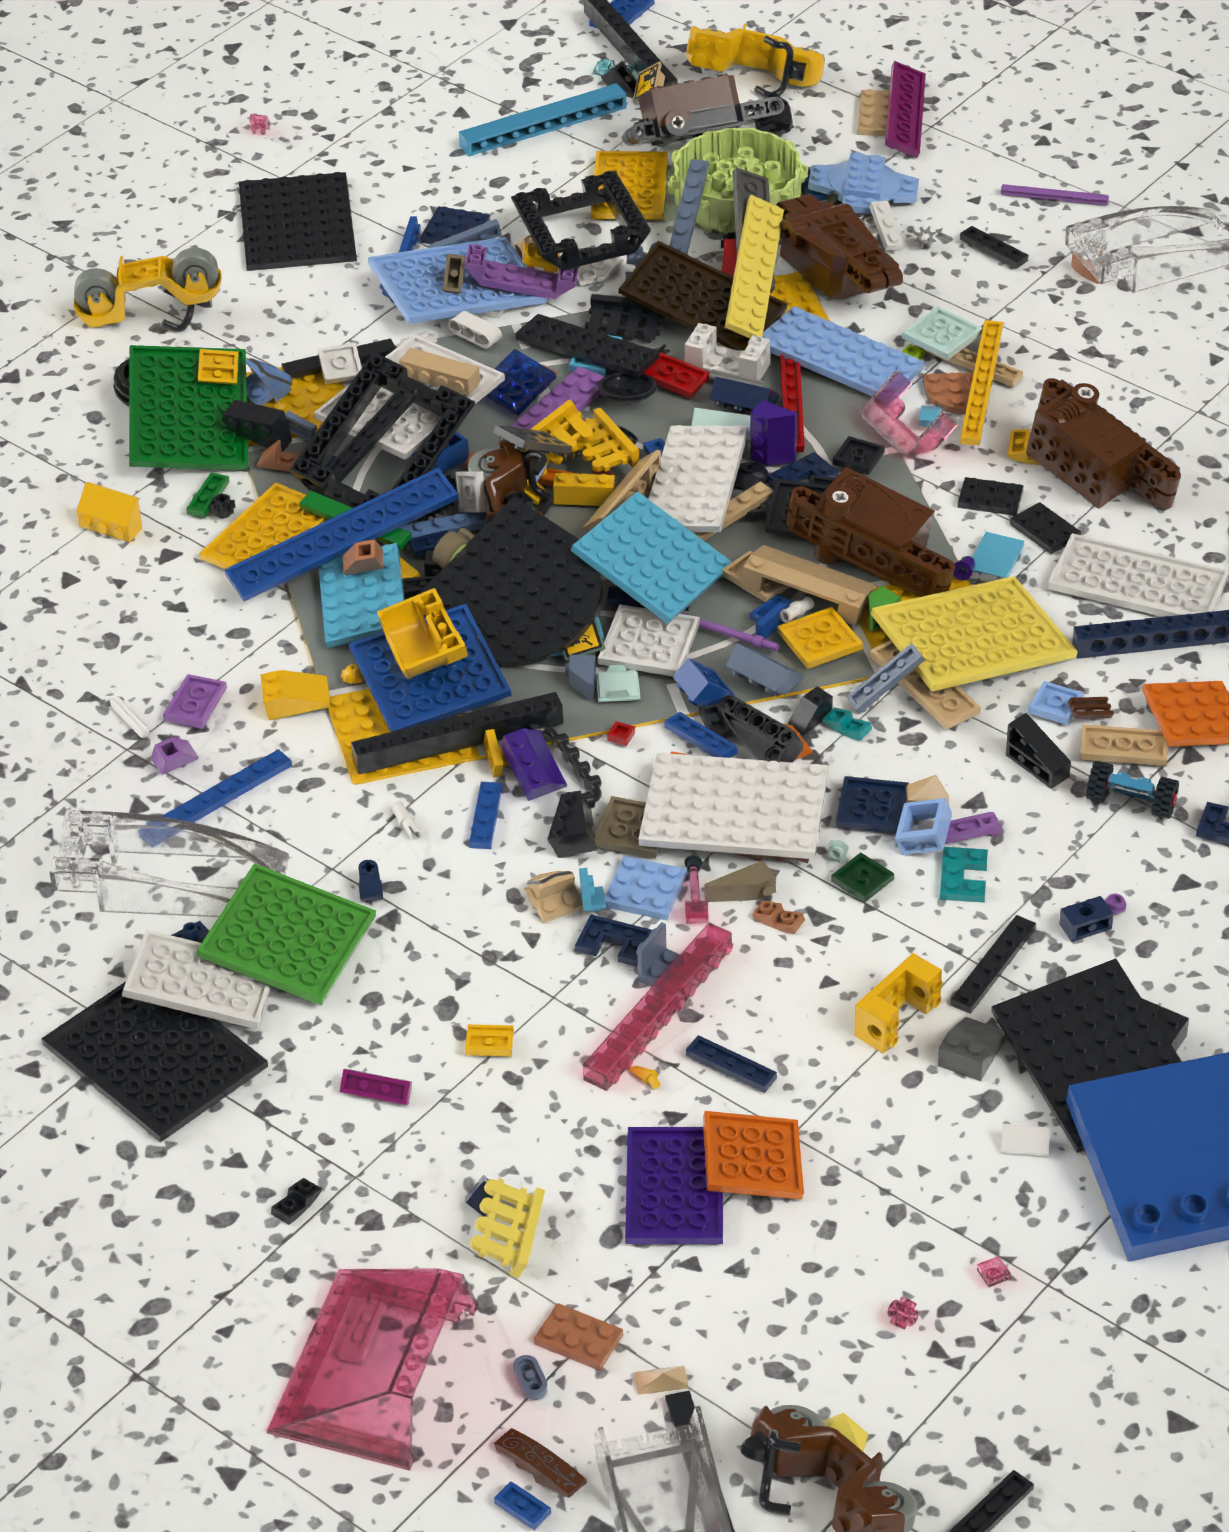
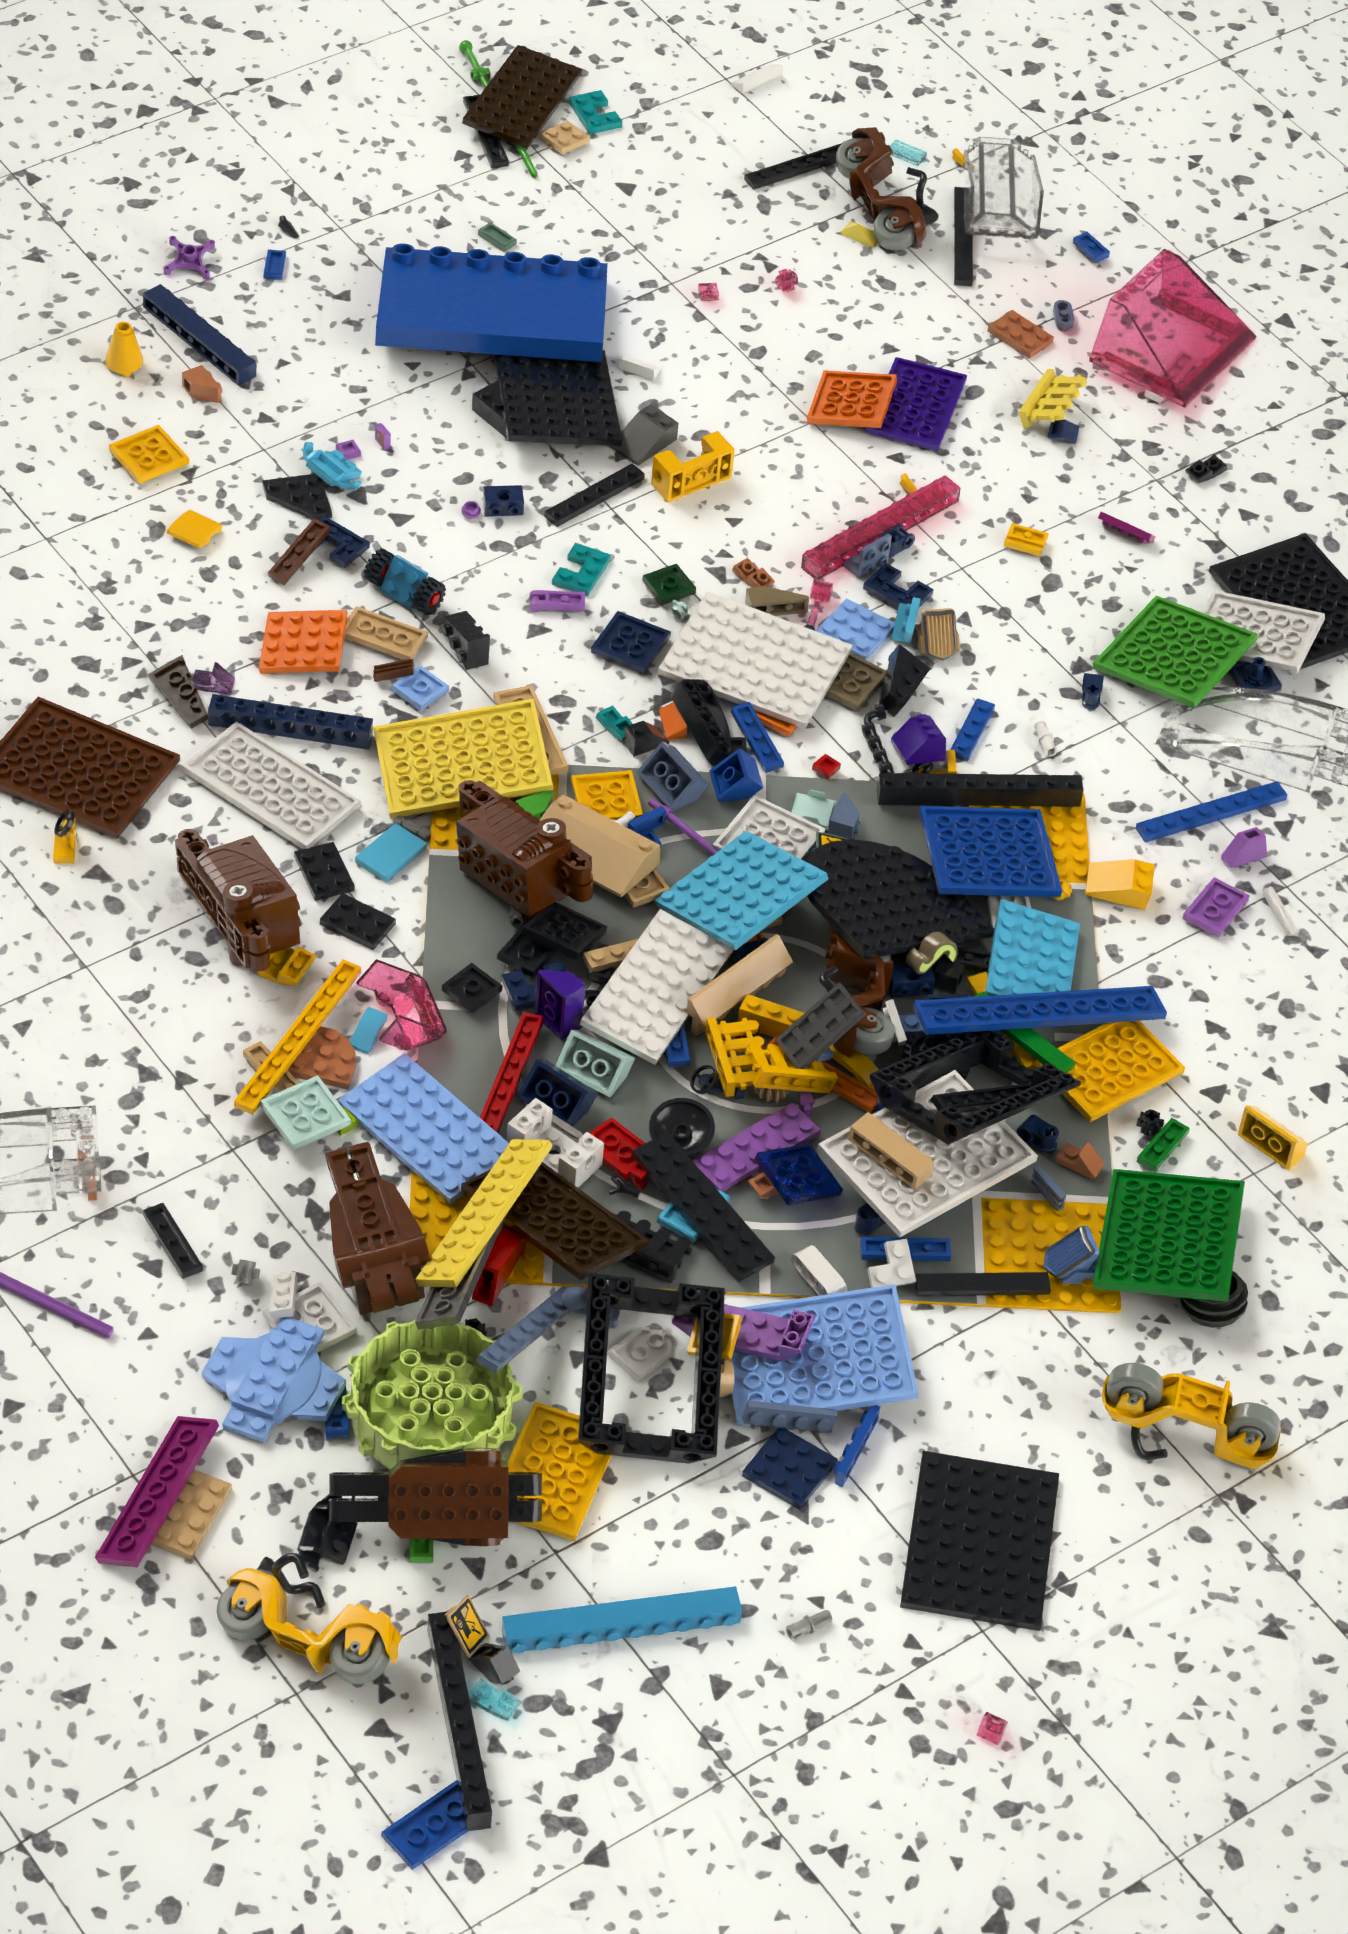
camera: 170 degrees left, 5 degrees up
(218, 366) = (1130, 1257): yellow slope -> none
(258, 423) = (1098, 1183): black wedge -> none
(339, 362) = (985, 1261): white plate -> none
(363, 557) = (1028, 962): nougat slope -> none
(409, 148) = (808, 1624): none -> light grey axle
(412, 642) = (992, 832): yellow piece -> none
(454, 273) = (823, 1336): dark tan slope -> none
(541, 1462) = (1074, 264): reddish brown slope -> none
(634, 990) = (900, 540): none -> dark blue piece
(661, 1380) = (971, 293): tan slope -> none
(731, 1063) = (840, 473): dark blue plate -> none
(885, 678) = (569, 728): sand blue plate -> none
(926, 789) = (580, 633): tan slope -> none
(932, 839) = (608, 588): light blue window -> none
(964, 568) = (434, 829): dark purple bush -> none

